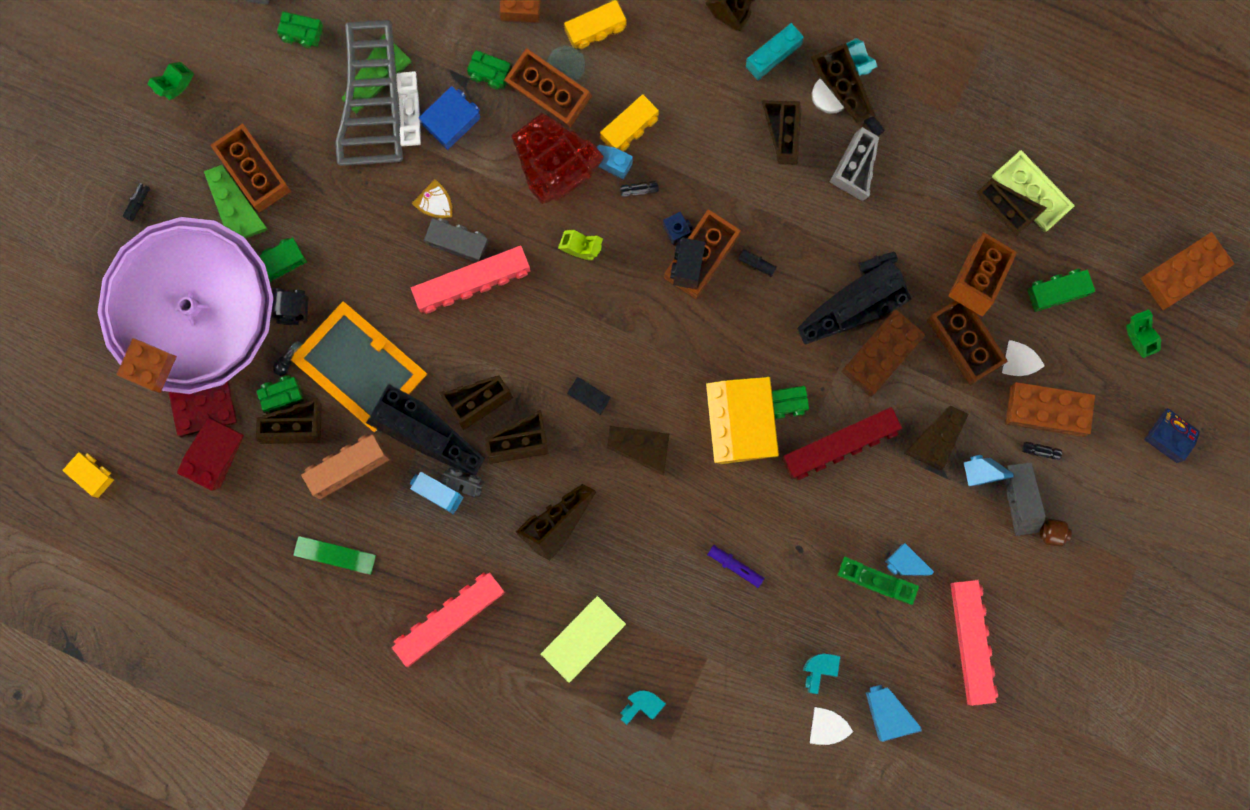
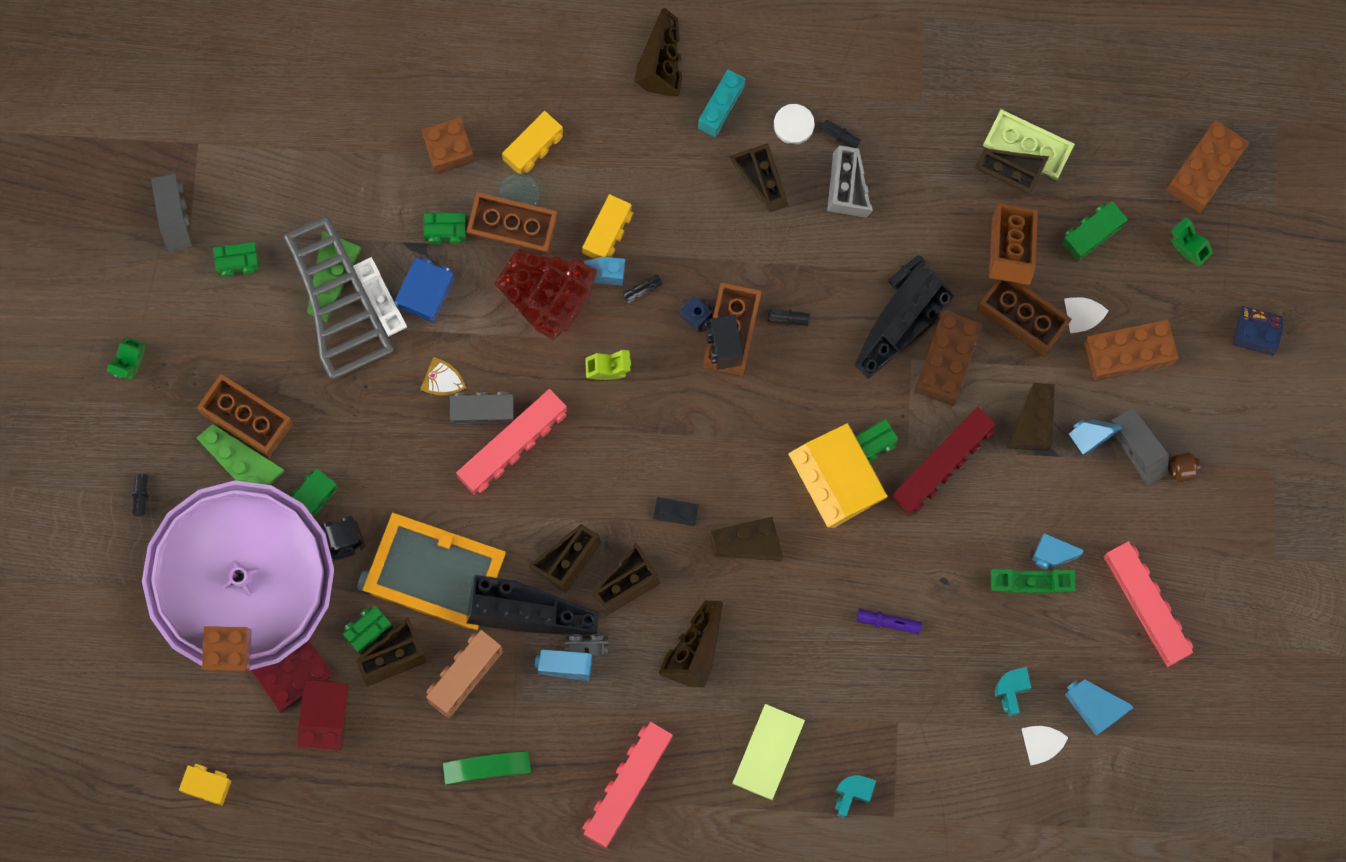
camera: 25 degrees left, 5 degrees down
(283, 364) = (357, 601): black bar -> none
(841, 77) = (799, 105): dark brown wedge -> none
(863, 63) = (805, 80): teal brick -> none
(1041, 450) = (1139, 393): black axle -> none

